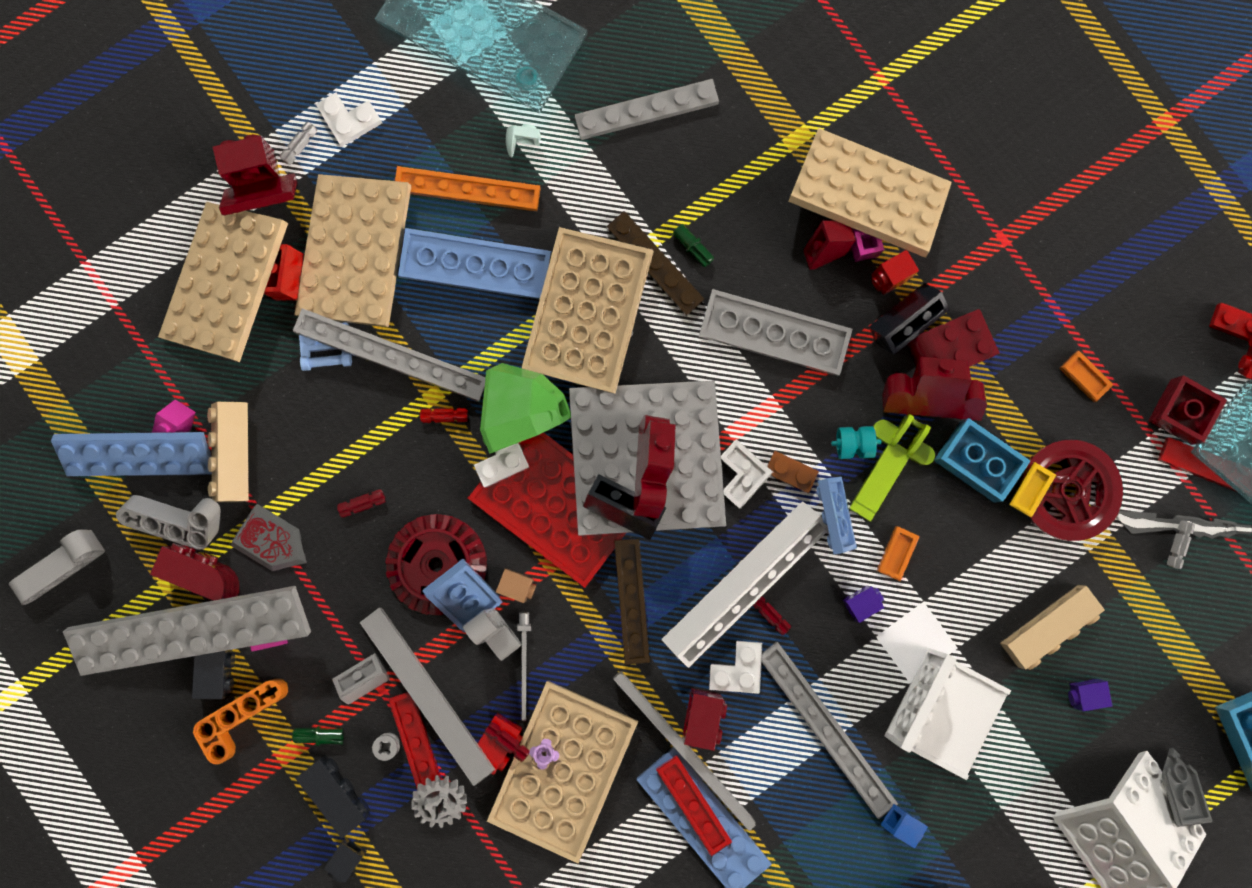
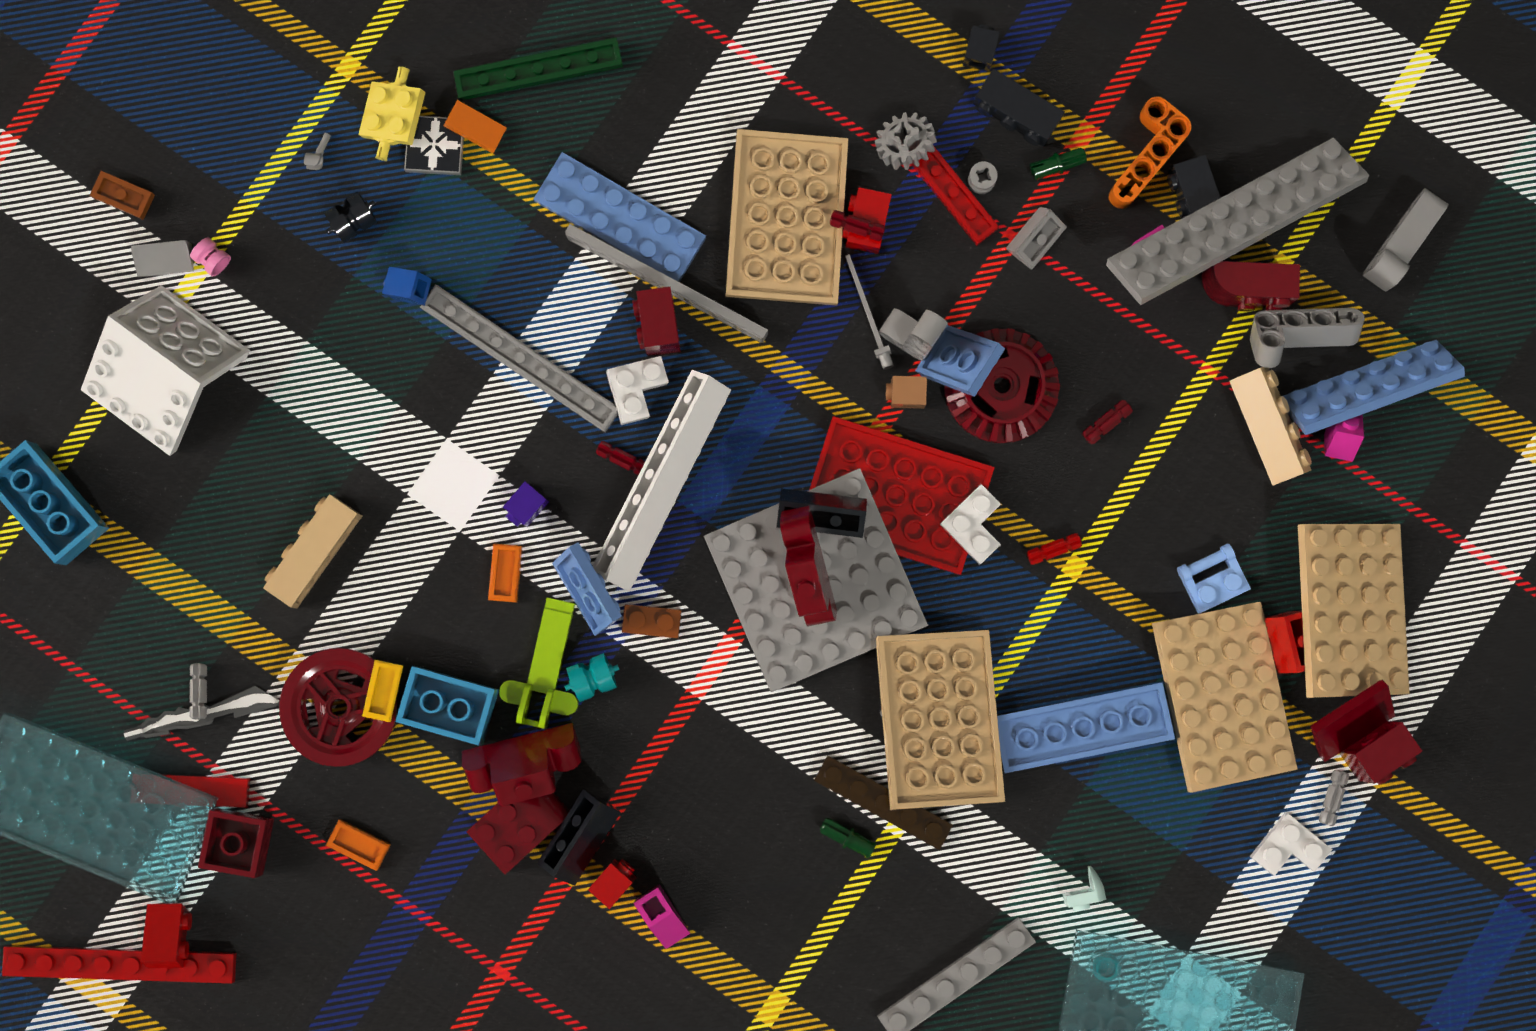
camera: 160 degrees right, 0 degrees up
(270, 540) = (1190, 348): dark grey tile -> none
(389, 355) = (1138, 592): light grey plate -> none
(427, 696) = (959, 244): light grey tile -> none
(470, 188) = (1121, 813): orange plate -> none
(519, 406) = (975, 584): bright green brick -> none
(543, 761) = (813, 219): lavender plate -> none
(631, 601) = (777, 420): dark brown plate -> none
(694, 805) = (636, 230): red tile -> none
(749, 470) = (696, 601): white plate -> none
(775, 332) = (722, 770): light grey plate -> none
(828, 243) = (696, 891): dark red slope -> none
(871, 192) = (669, 967): tan plate -> none
(946, 713) = (398, 419): white bracket -> none
(1090, 695) = (250, 492): dark purple brick -> none
(1184, 792) = (118, 424): dark grey tile -> none

